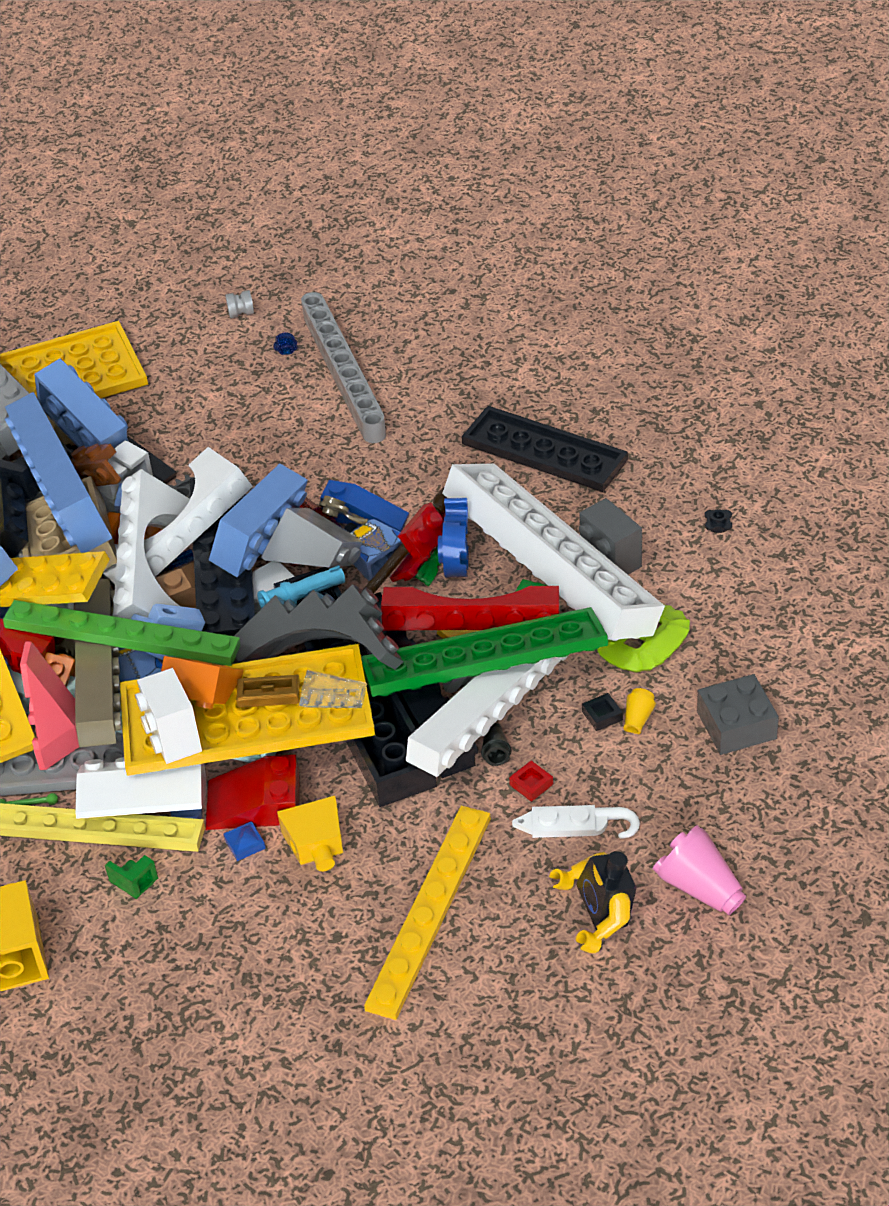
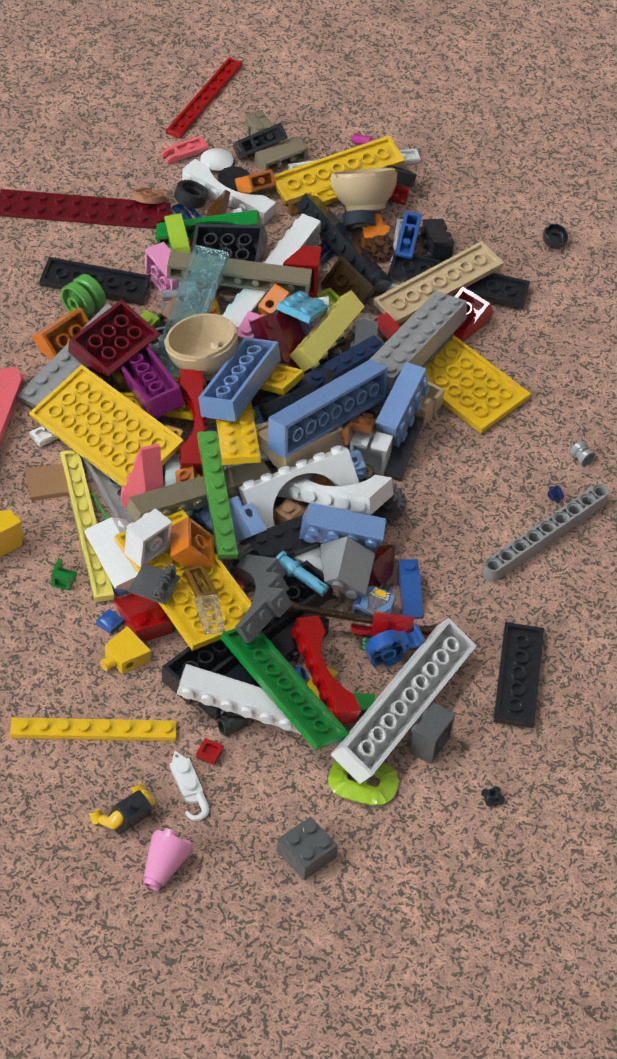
camera: 60 degrees right, 5 degrees up
(244, 737) = (155, 583): none -> dark grey hinge
(333, 507) = (389, 570): dark tan plate -> none
(602, 711) = (283, 774): black plate -> none
(638, 709) = (291, 793): yellow cone -> none

